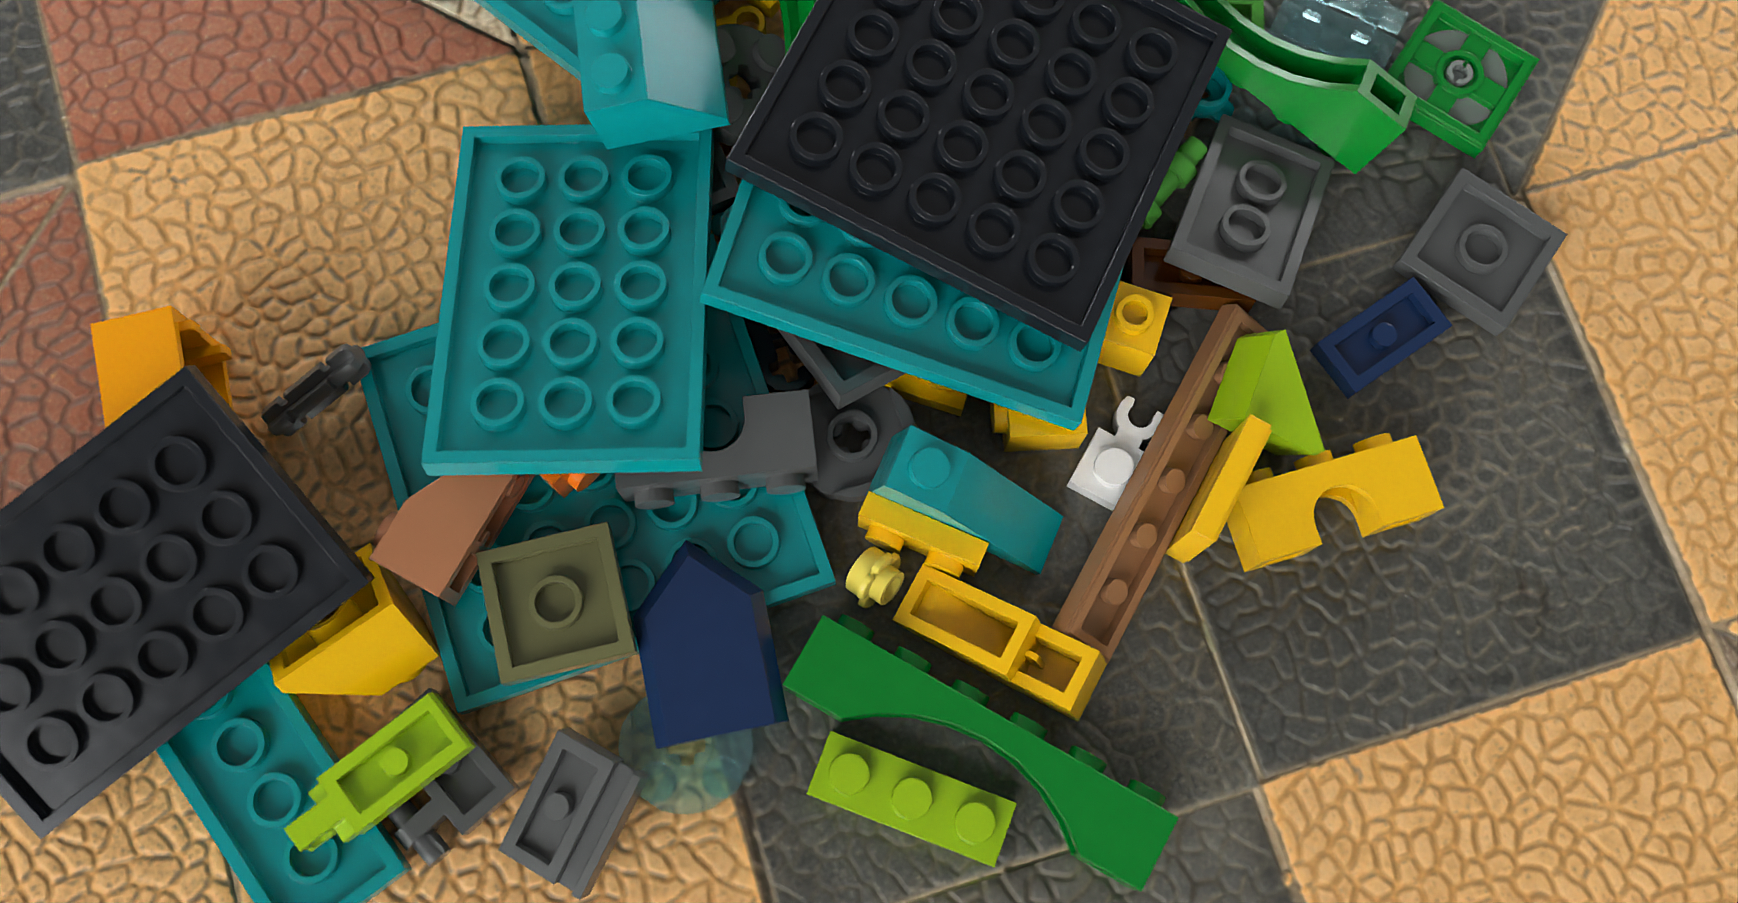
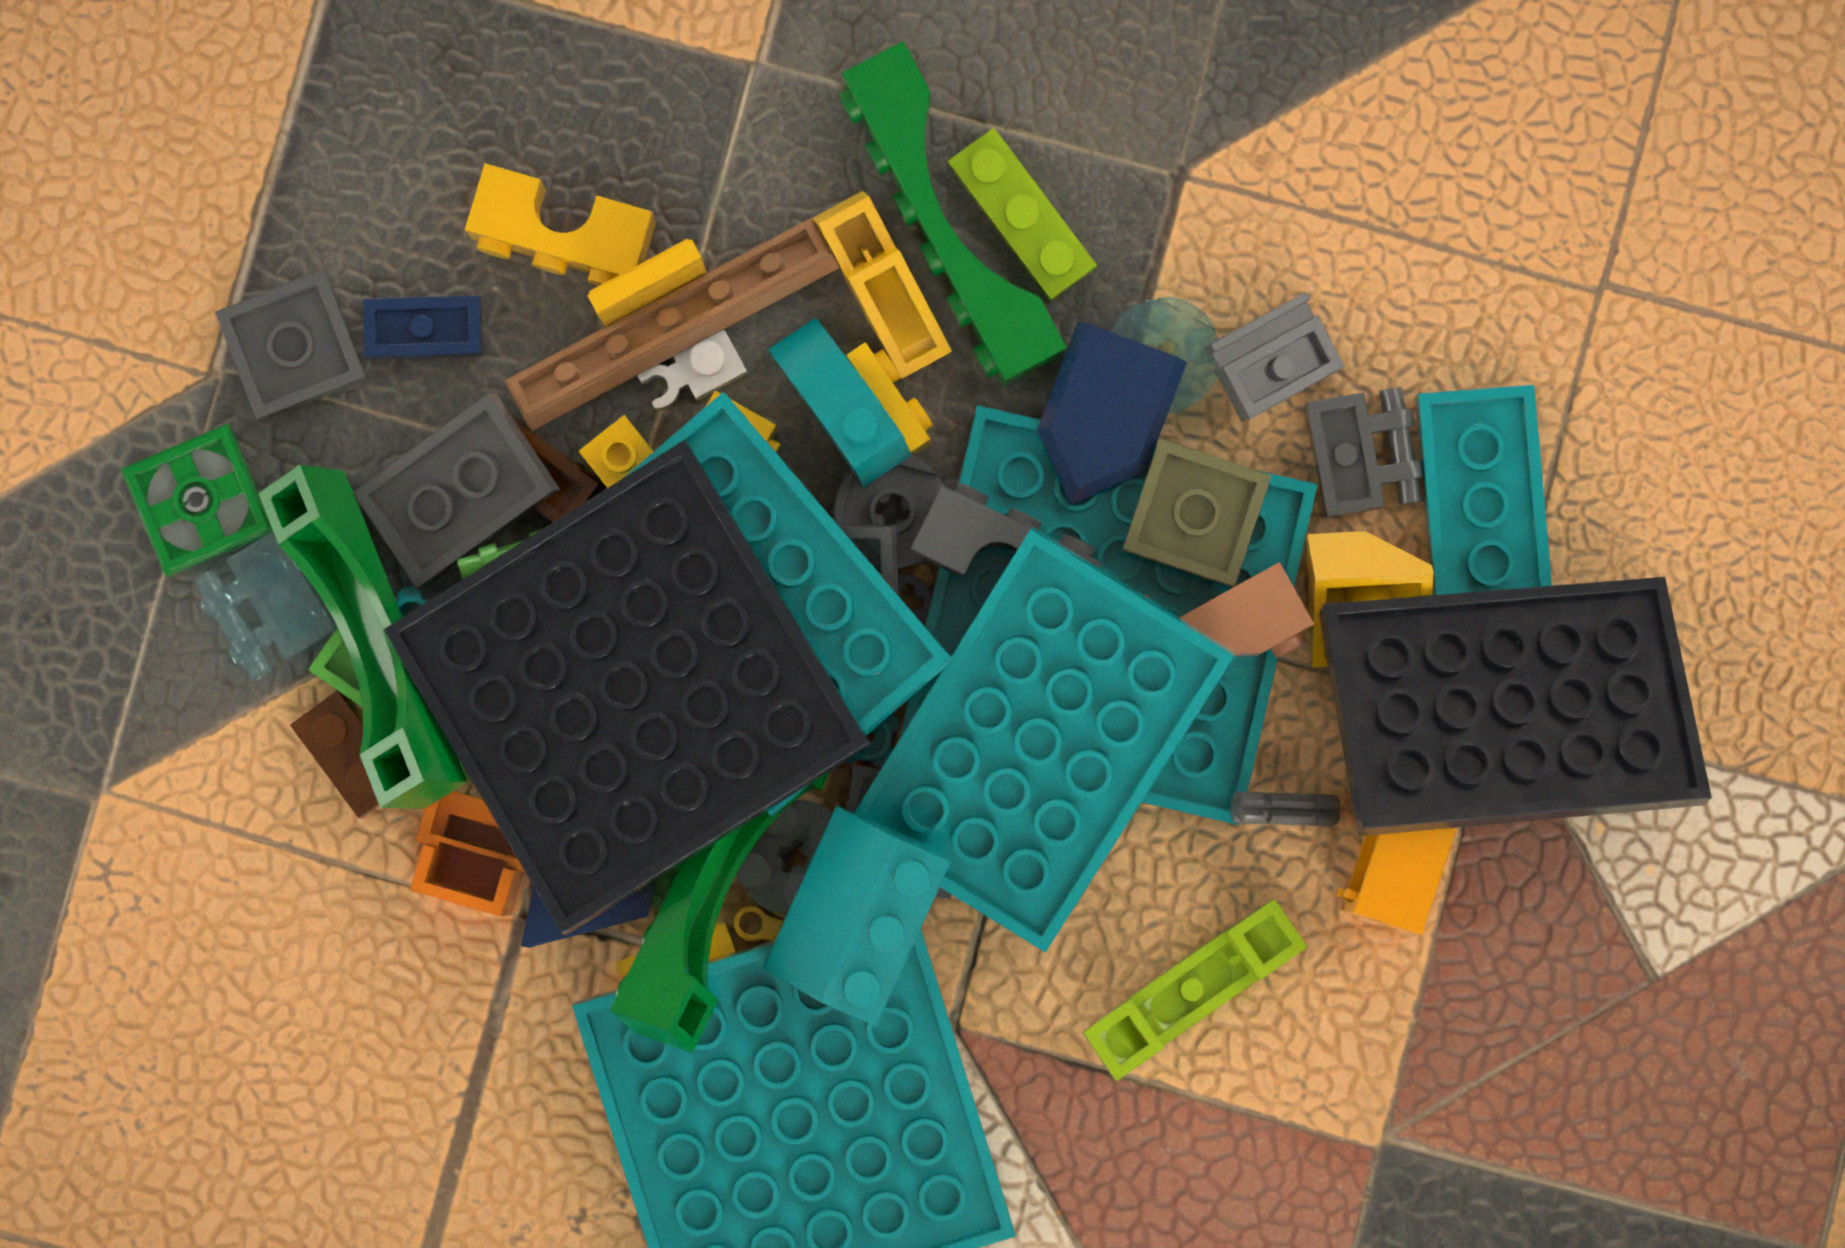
camera: 145 degrees left, 10 degrees up
(321, 191) = (1194, 988): none -> lime slope
(382, 774) = (1392, 466): lime hinge -> none
(875, 577) = (944, 390): light yellow plate -> none
(1267, 384) = (558, 334): lime slope -> none

